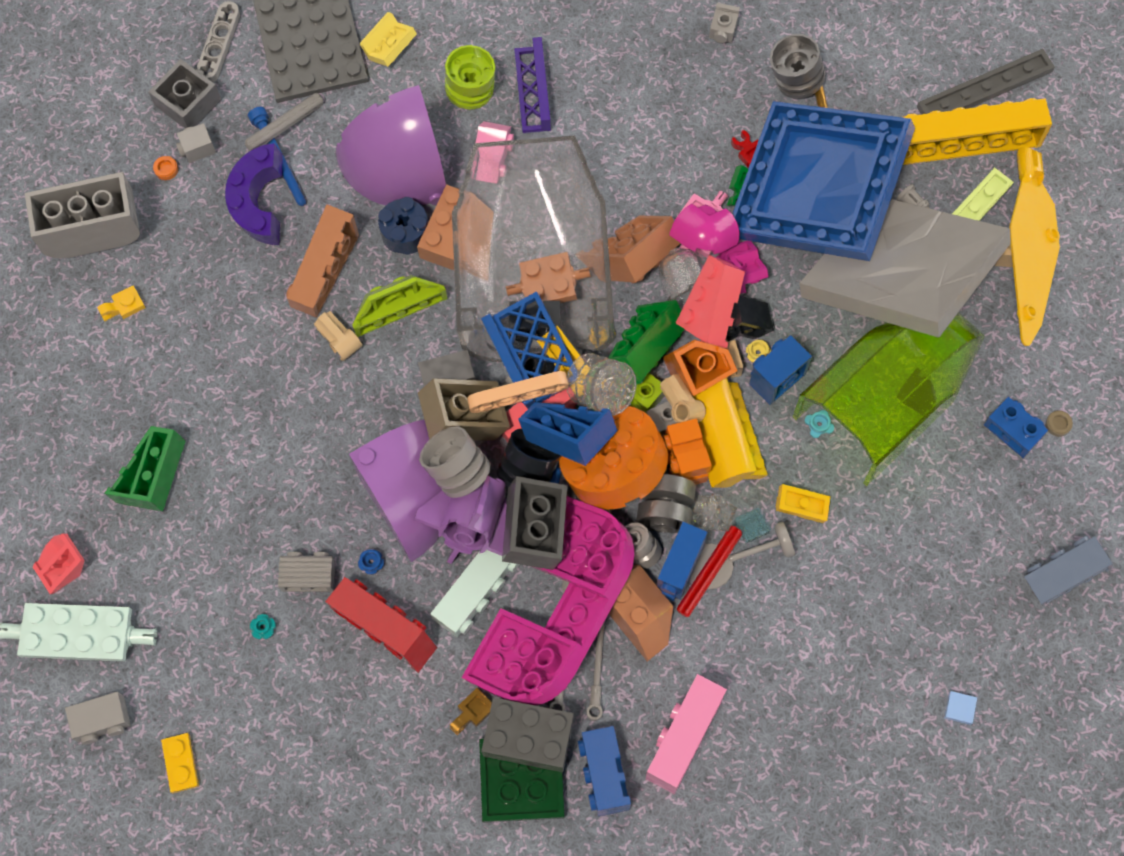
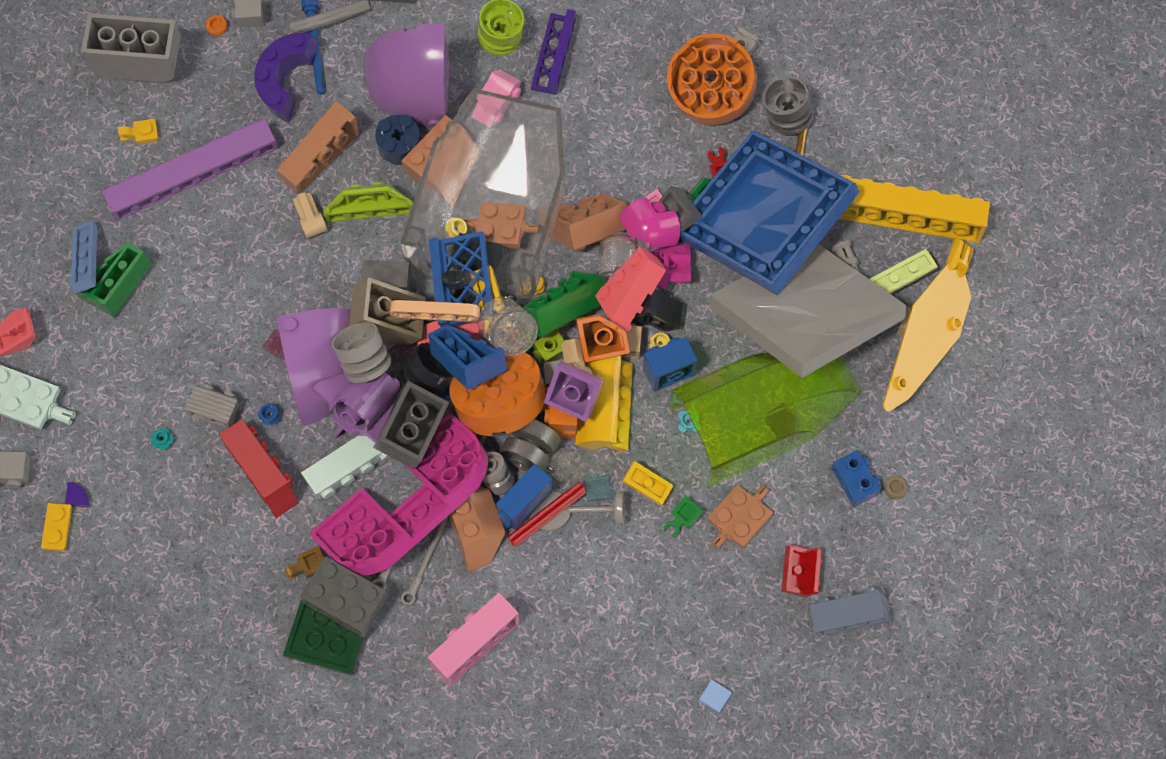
camera: 15 degrees right, 0 degrees up
(109, 457) = (84, 257): none -> medium blue plate
(190, 327) = (190, 169): none -> medium lavender brick
(190, 721) = (76, 496): none -> dark purple tile
(350, 484) = (274, 346): none -> clear pink tile
(501, 297) = (459, 224): none -> light yellow plate
(525, 352) = (454, 279): none -> black piece
(604, 771) = (397, 648): blue wedge -> none
(698, 429) = (573, 391): none -> medium lavender brick
(704, 39) = (725, 96): none -> orange brick
(721, 198) = (676, 200): none -> dark grey slope
(854, 523) = (685, 514): none -> green plate
(911, 507) = (740, 516): none -> nougat plate
(990, 84) = (954, 174): dark grey plate -> none
(999, 543) = (801, 571): none -> red bracket

